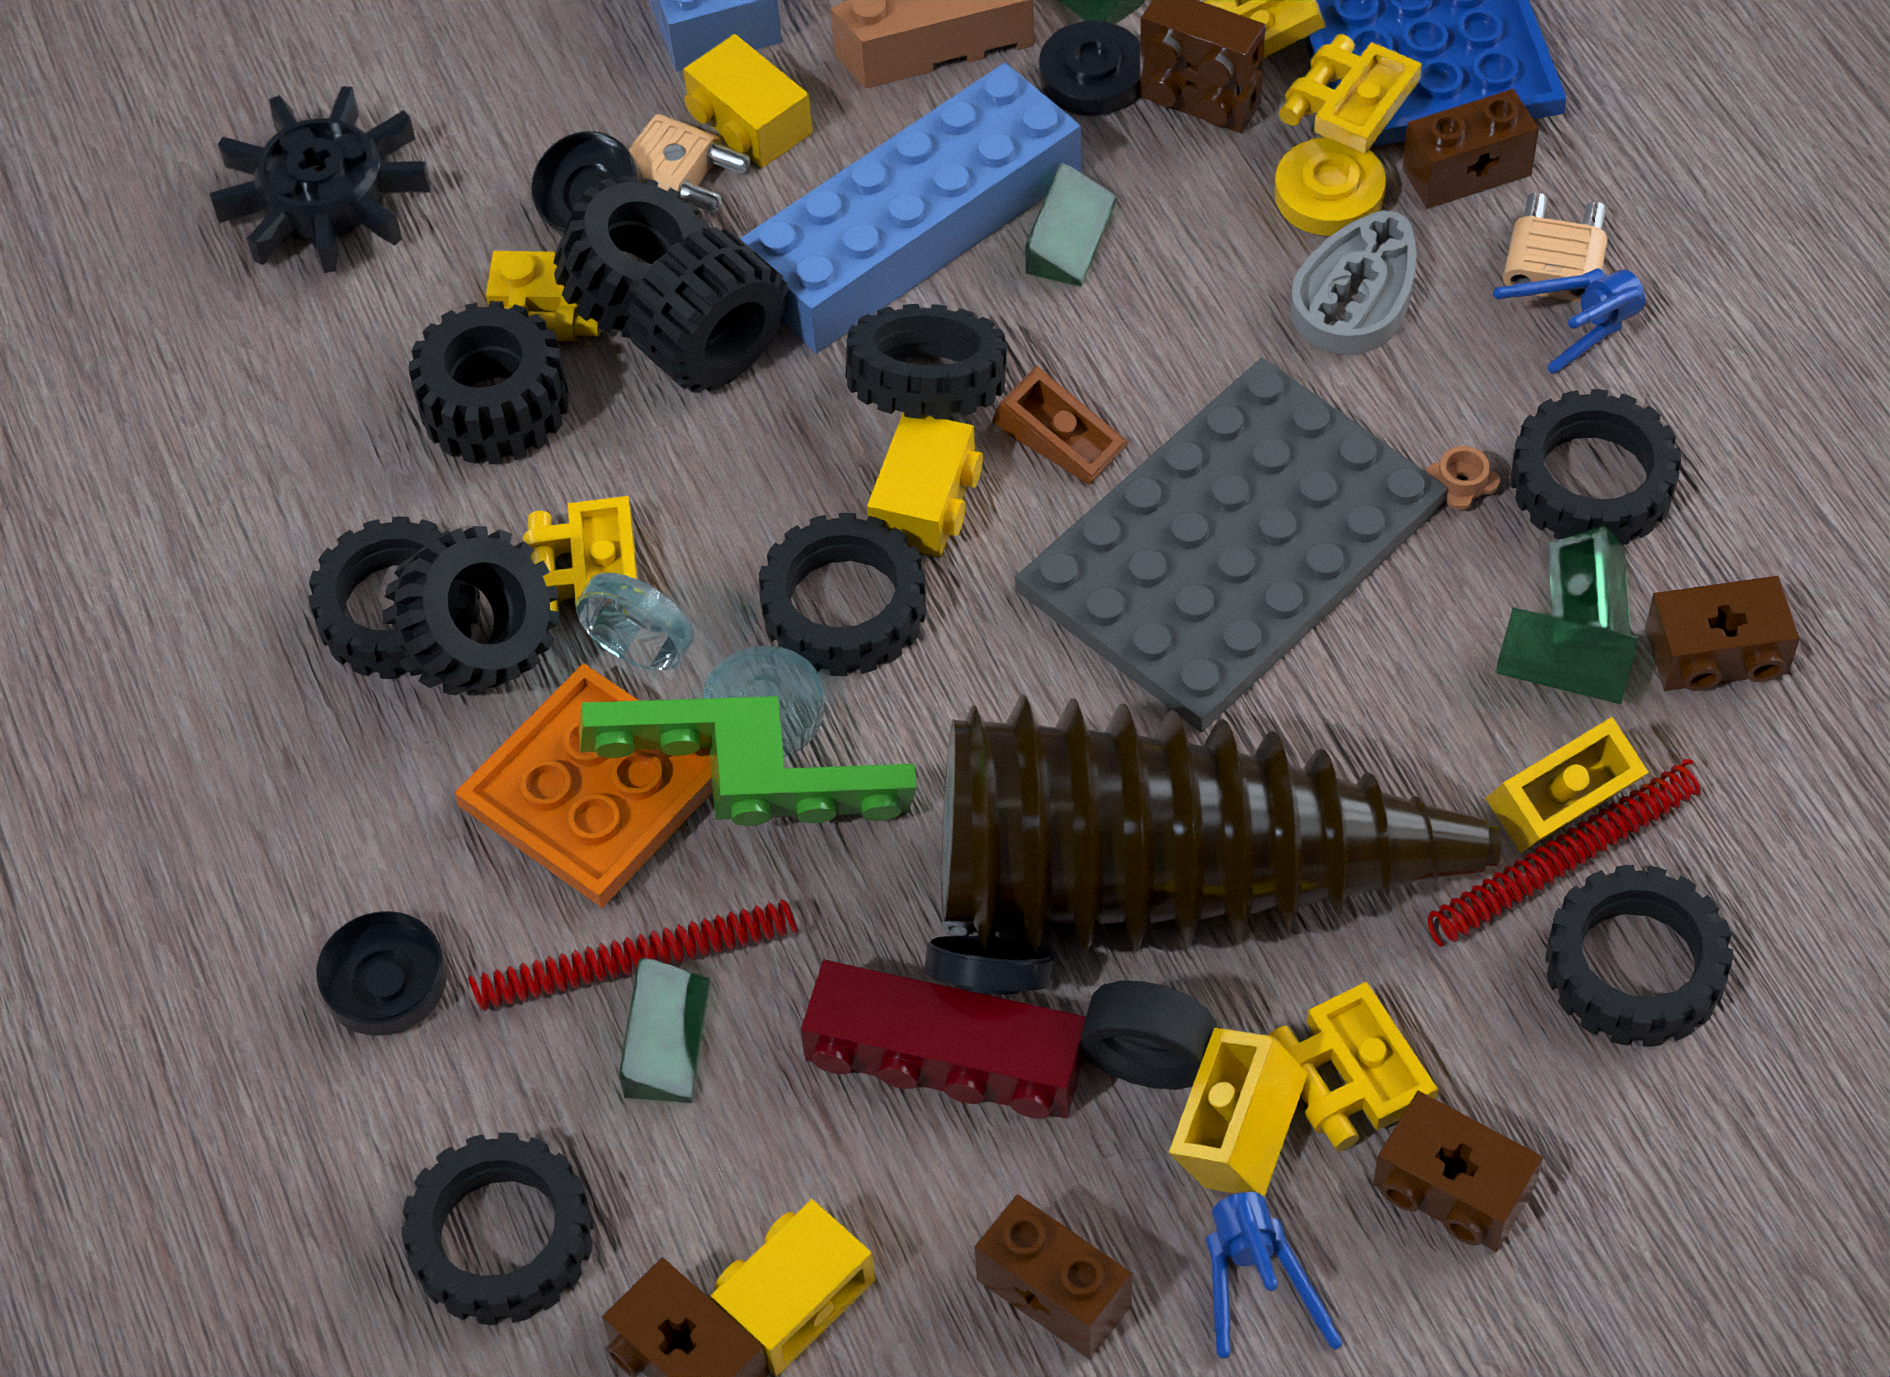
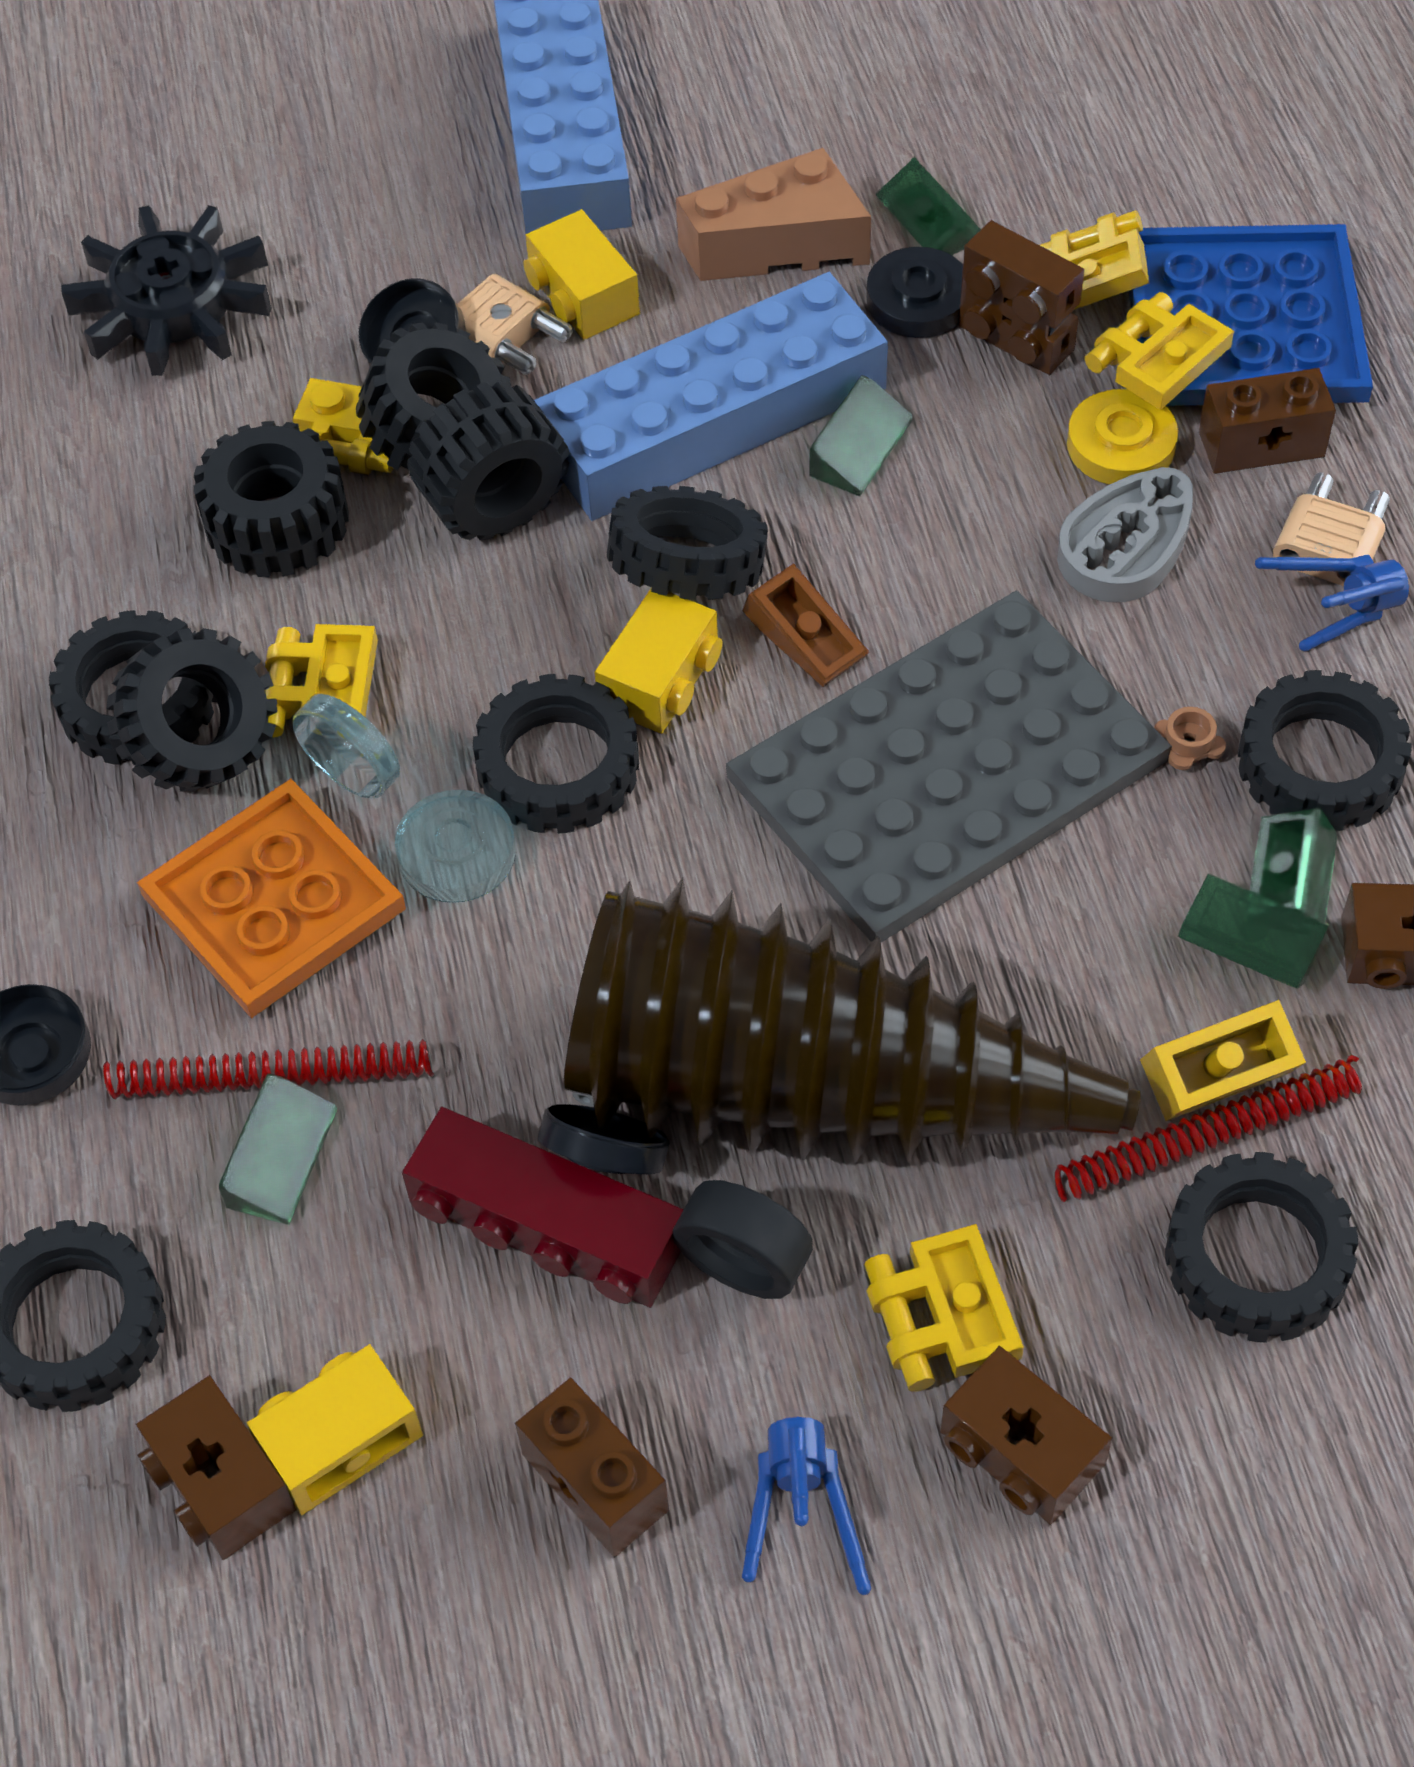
camera: 10 degrees right, 0 degrees up
(746, 759) = (416, 897): bright green bracket -> none
(1238, 1112) = (814, 1334): yellow brick -> none

